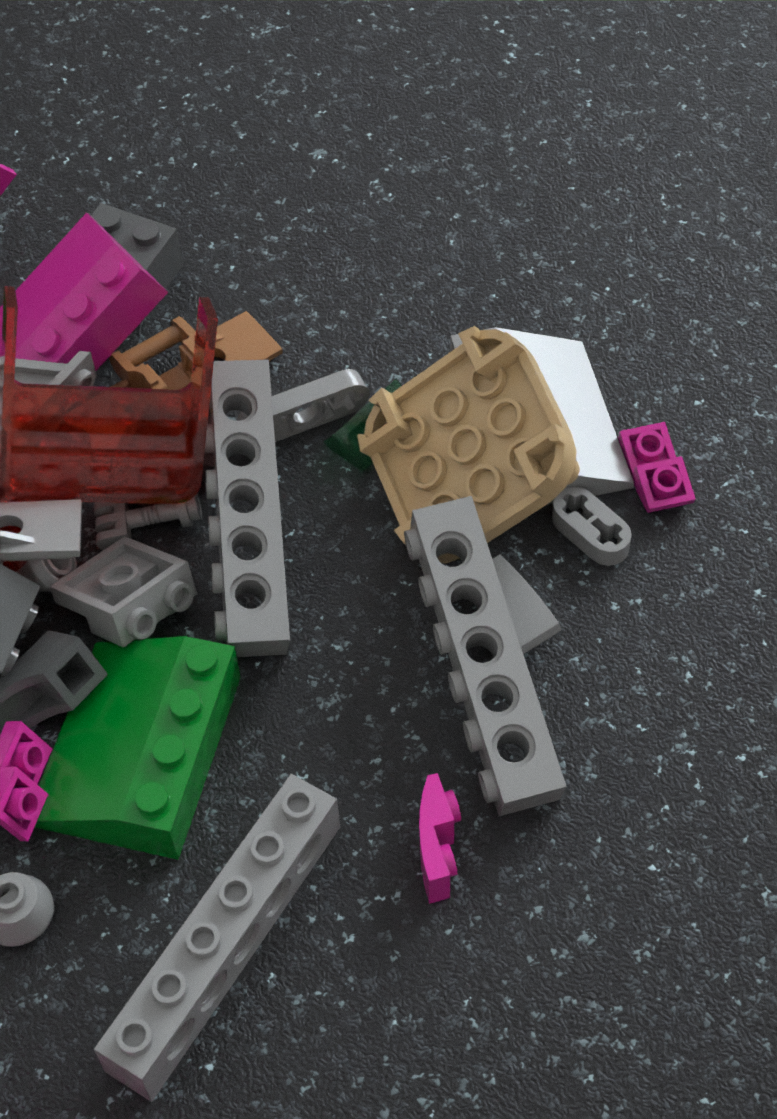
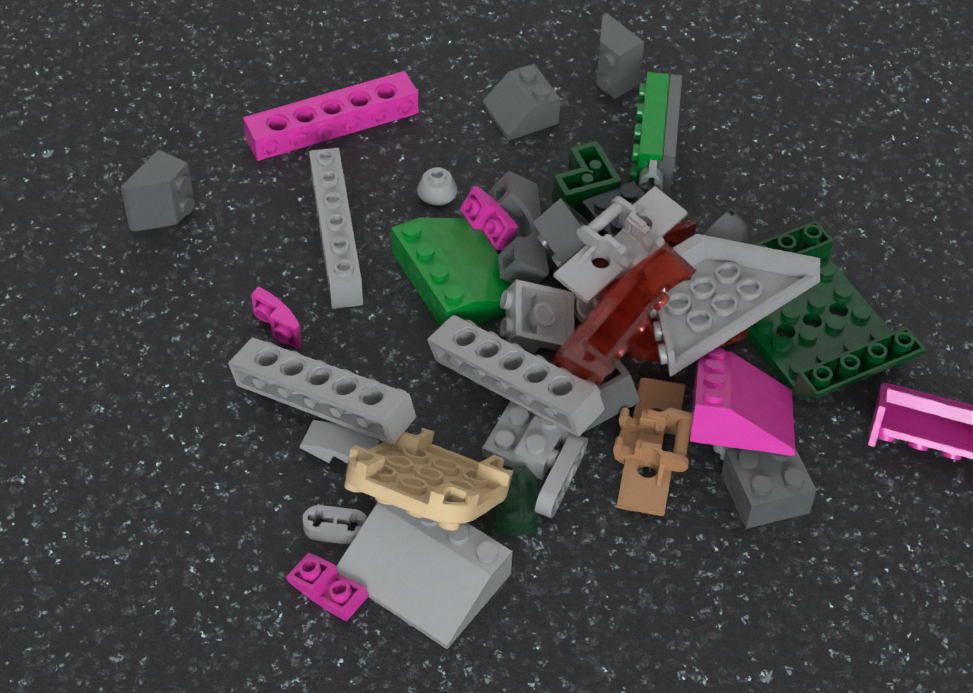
camera: 135 degrees right, 5 degrees down
(306, 470) = (525, 440): none -> light grey plate

